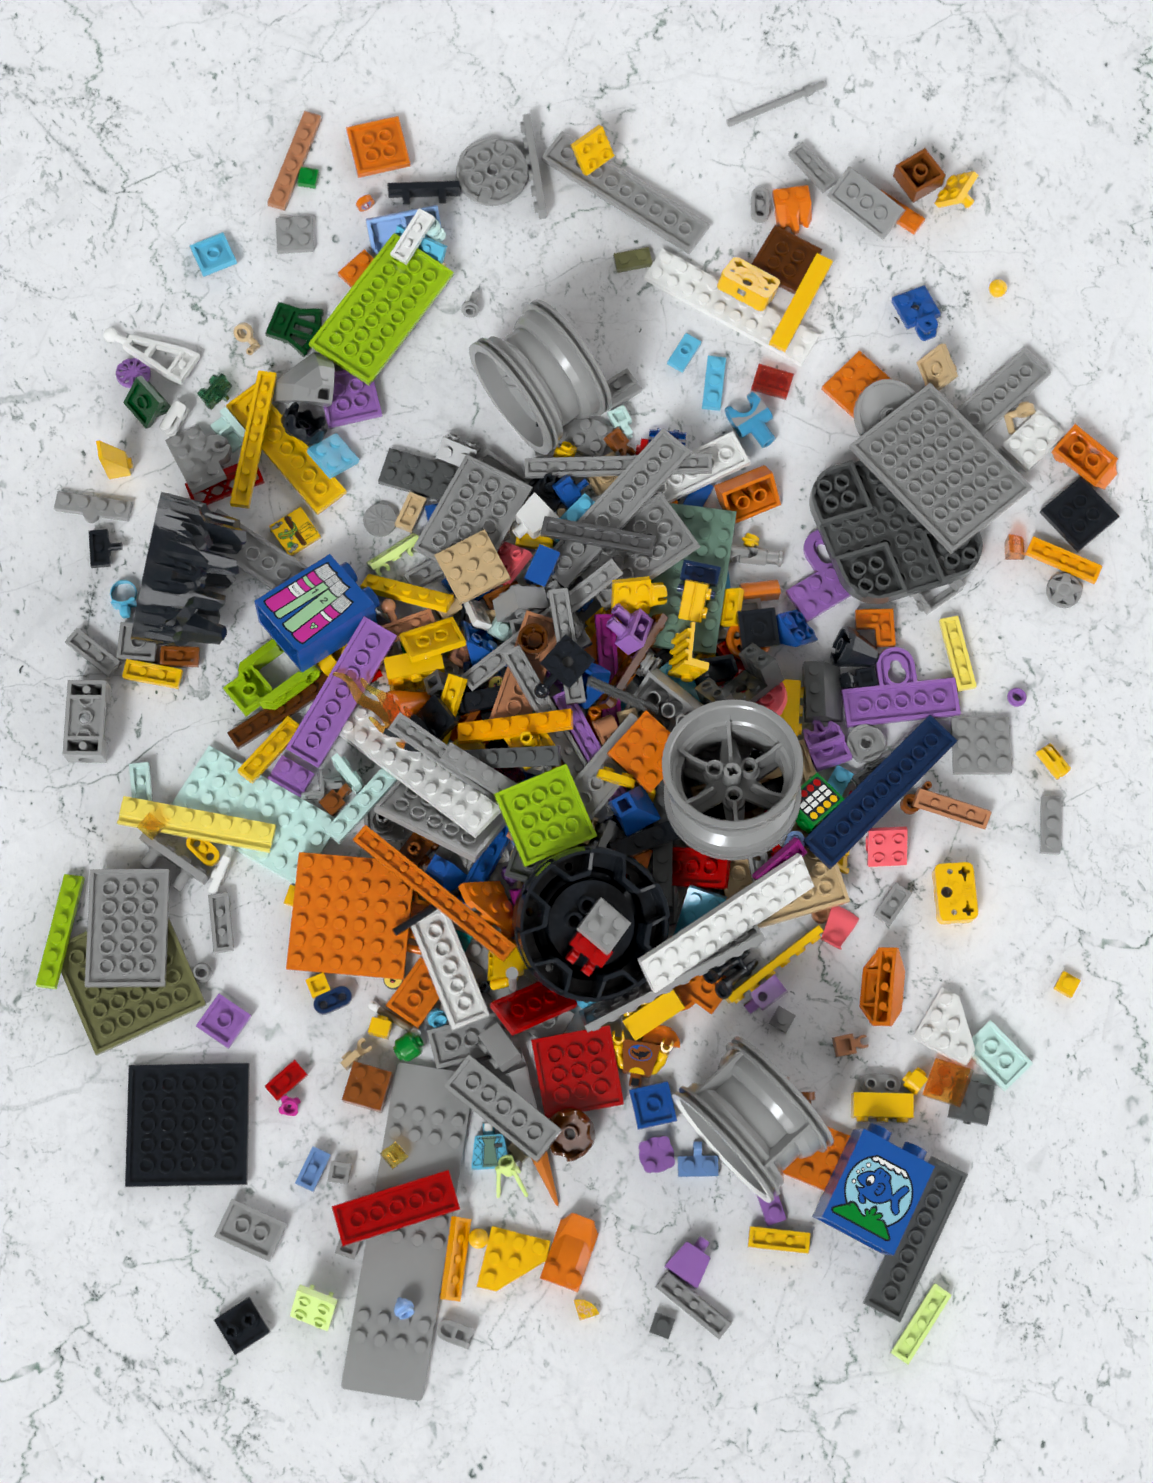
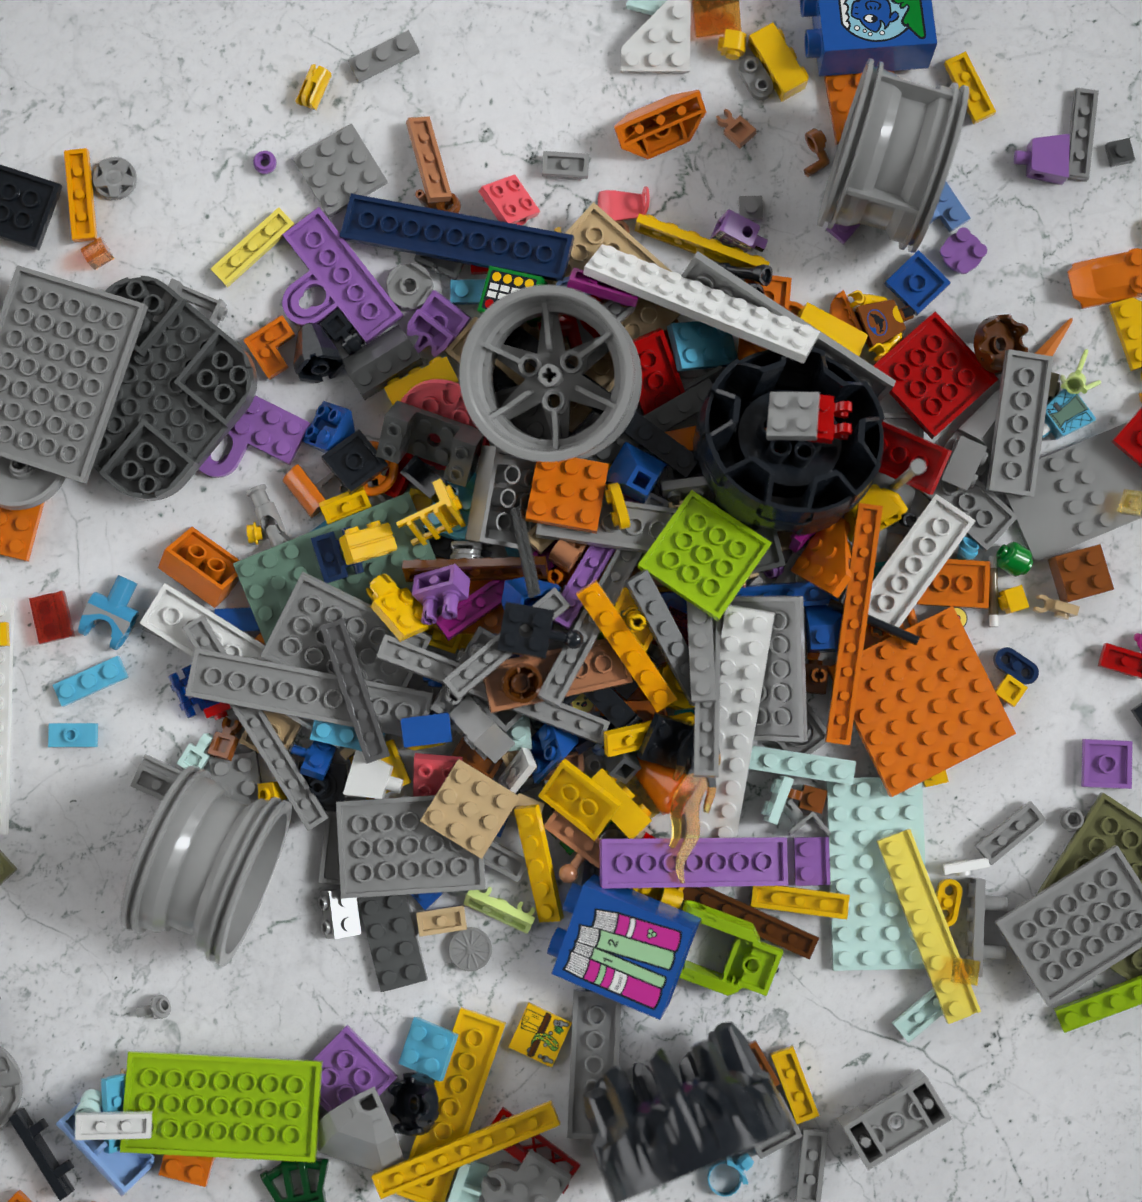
camera: 115 degrees left, 10 degrees up
(961, 893) = (515, 102): yellow axle -> none

